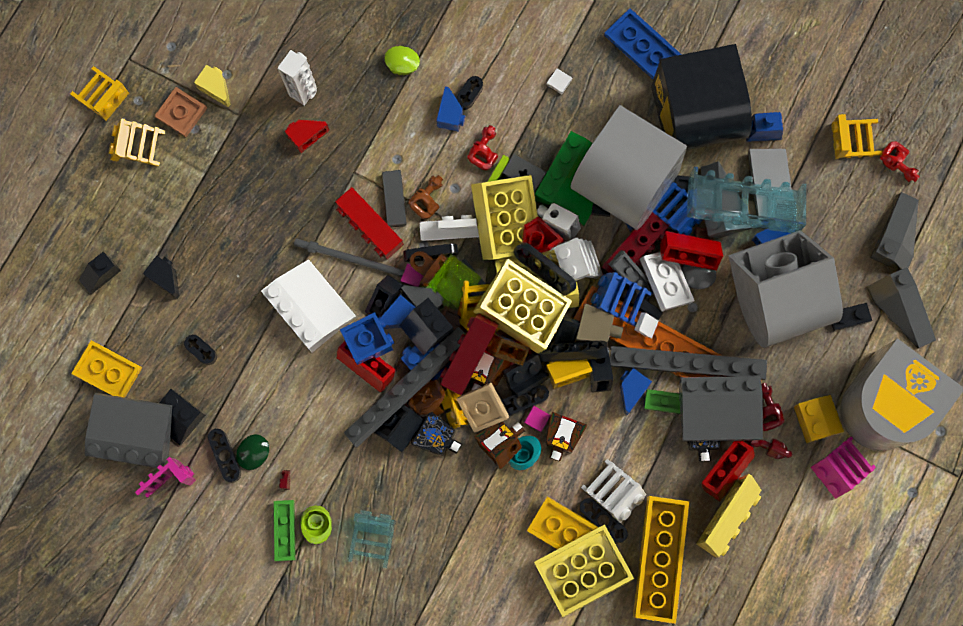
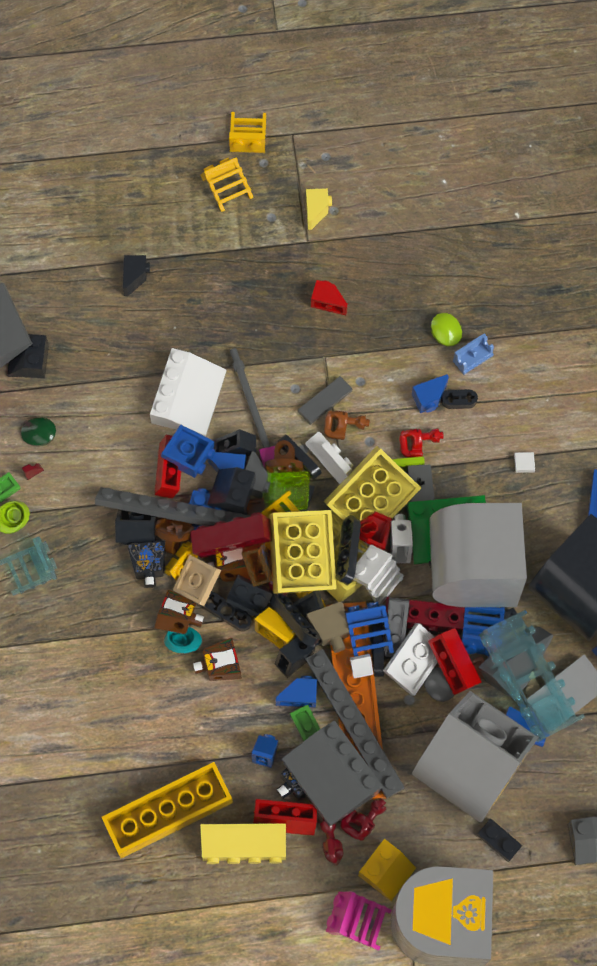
camera: 50 degrees right, 10 degrees down
(98, 272) = (104, 225): black slope -> none
(106, 370) = (30, 283): yellow plate -> none
(180, 112) = (277, 198): nougat tile -> none
(203, 346) = (90, 338): black beam -> none
(224, 471) = (9, 421): black beam -> none
(297, 77) = (365, 257): white brick -> none
(369, 223) = (288, 395): red brick -> none
(440, 54) = (473, 354): none -> medium blue hinge
(537, 419) = (219, 632): dark pink tile -> none
(558, 524) = (139, 713): yellow plate -> none
(583, 571) = (113, 752): light yellow slope -> none
(618, 526) = (166, 728): black beam -> none
(623, 499) = (198, 745): white plate -> none
(662, 447) = (265, 750): none -> blue slope
(901, 301) = (544, 874): dark grey wedge -> none

